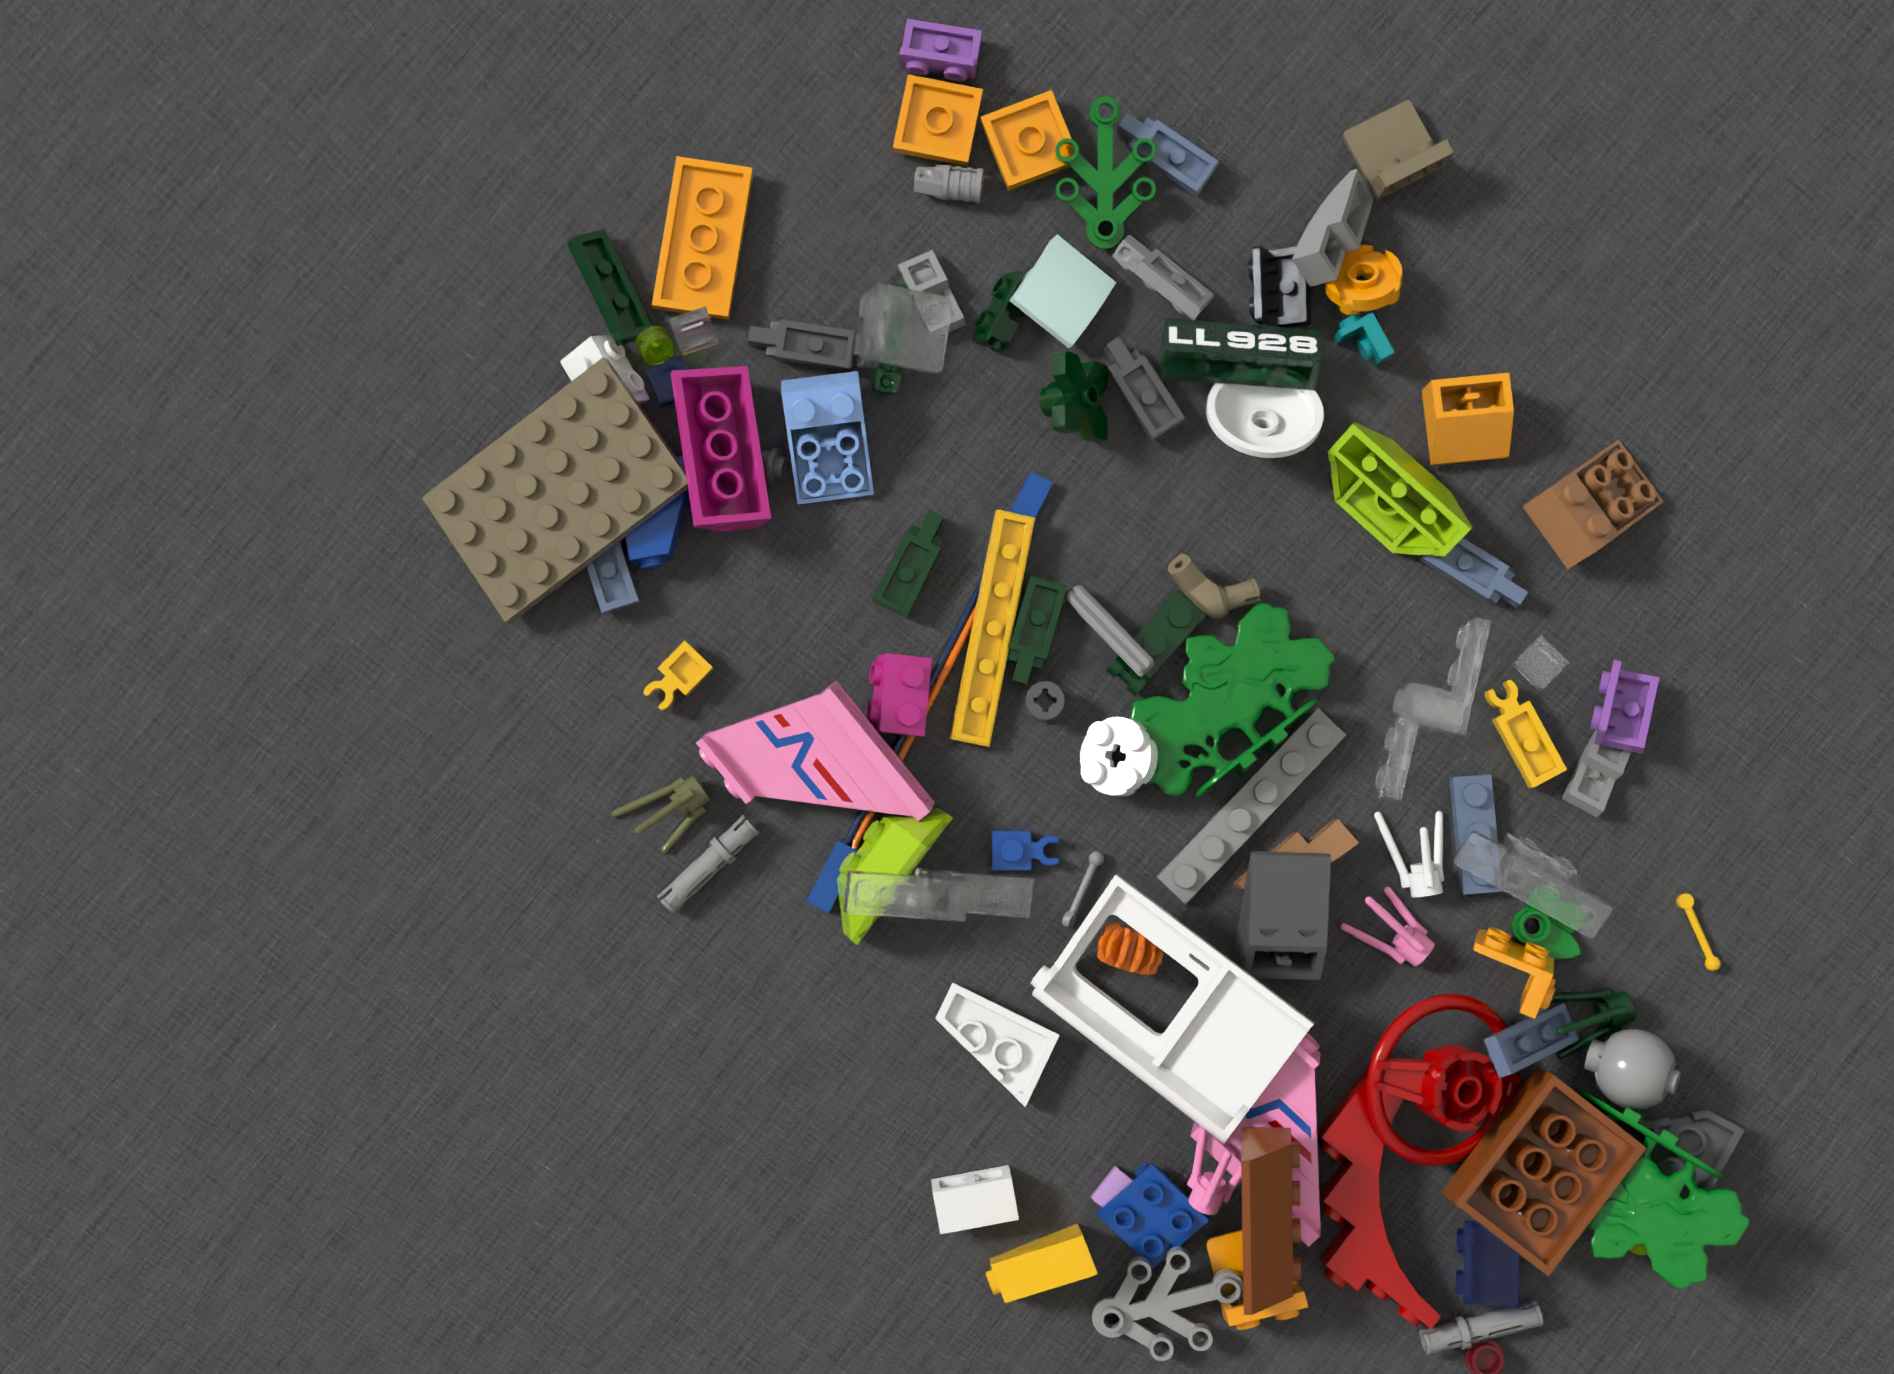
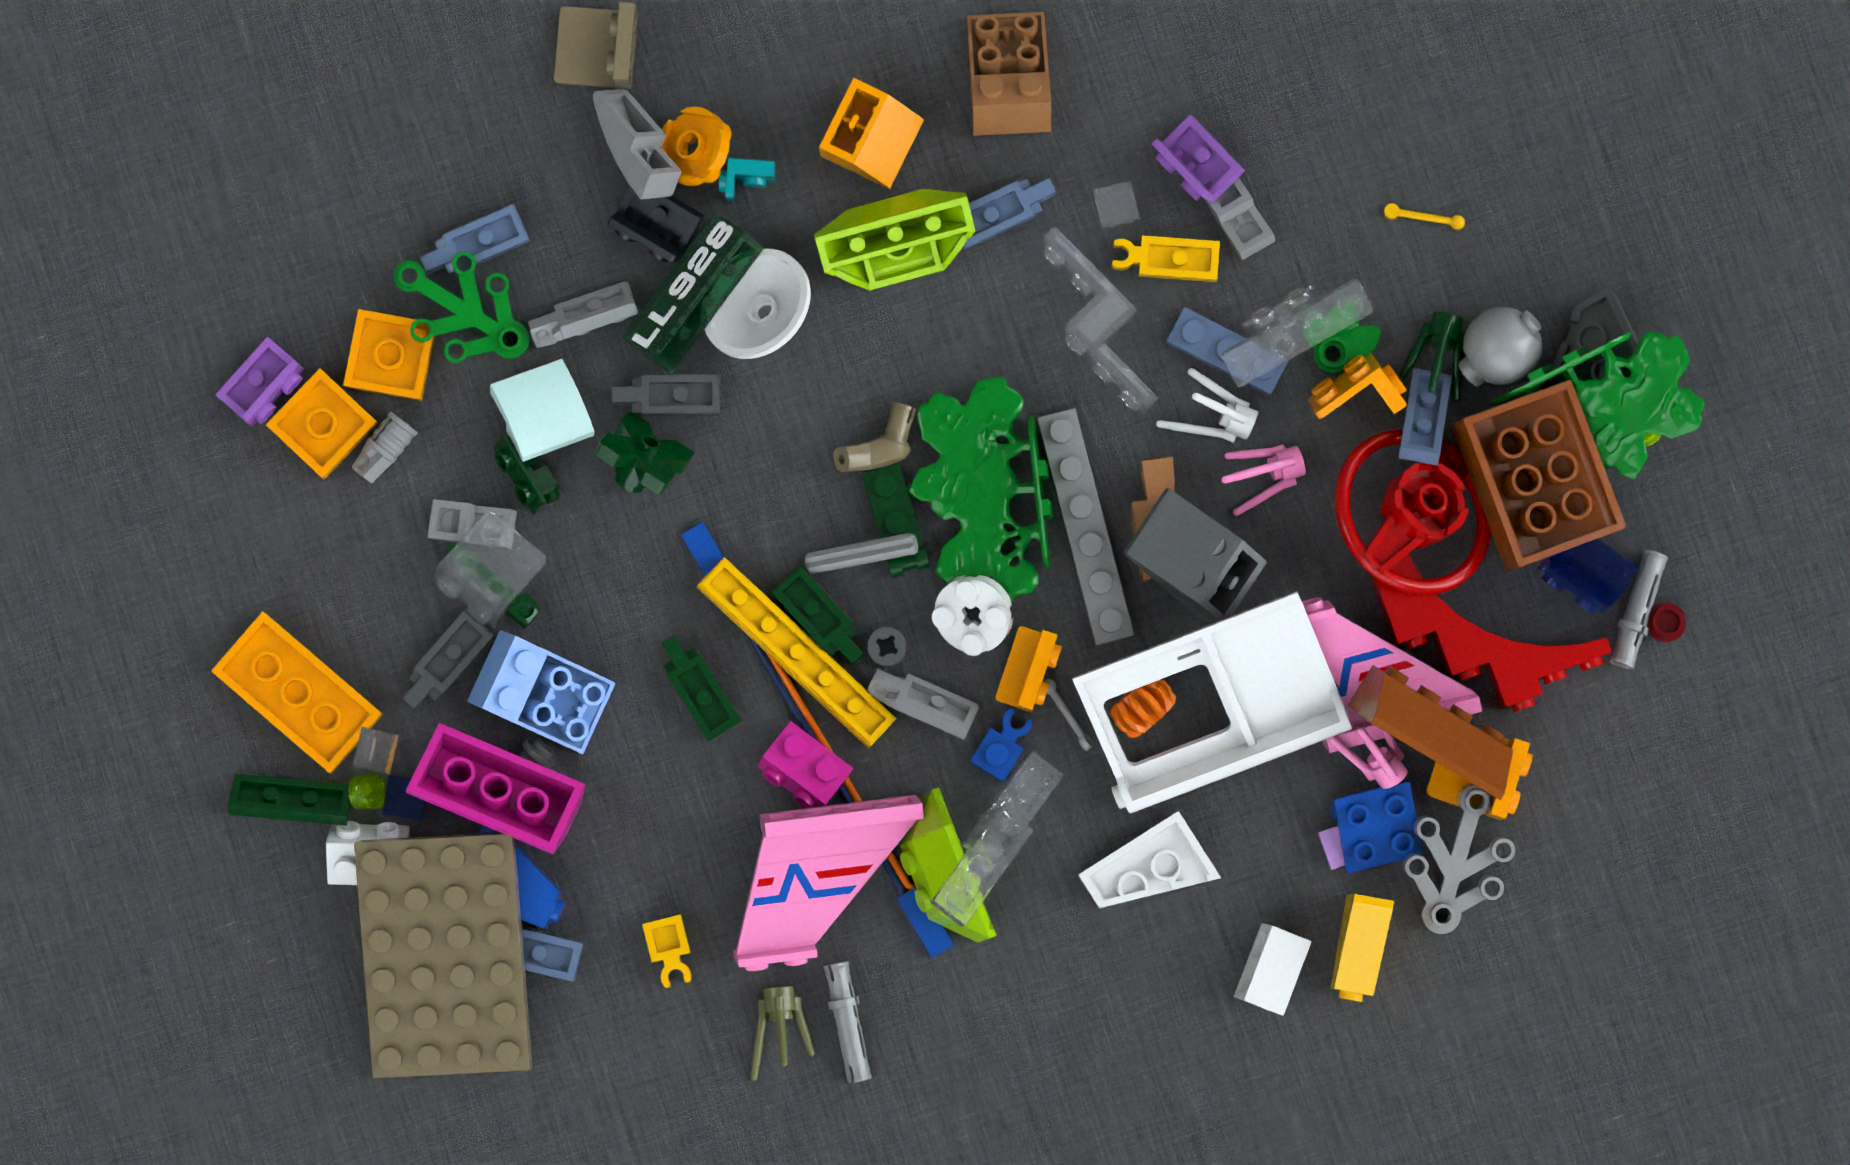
camera: 55 degrees left, 0 degrees up
(1017, 762) = (924, 702): none -> light grey hinge
(1100, 829) = (1025, 669): none -> light orange bracket

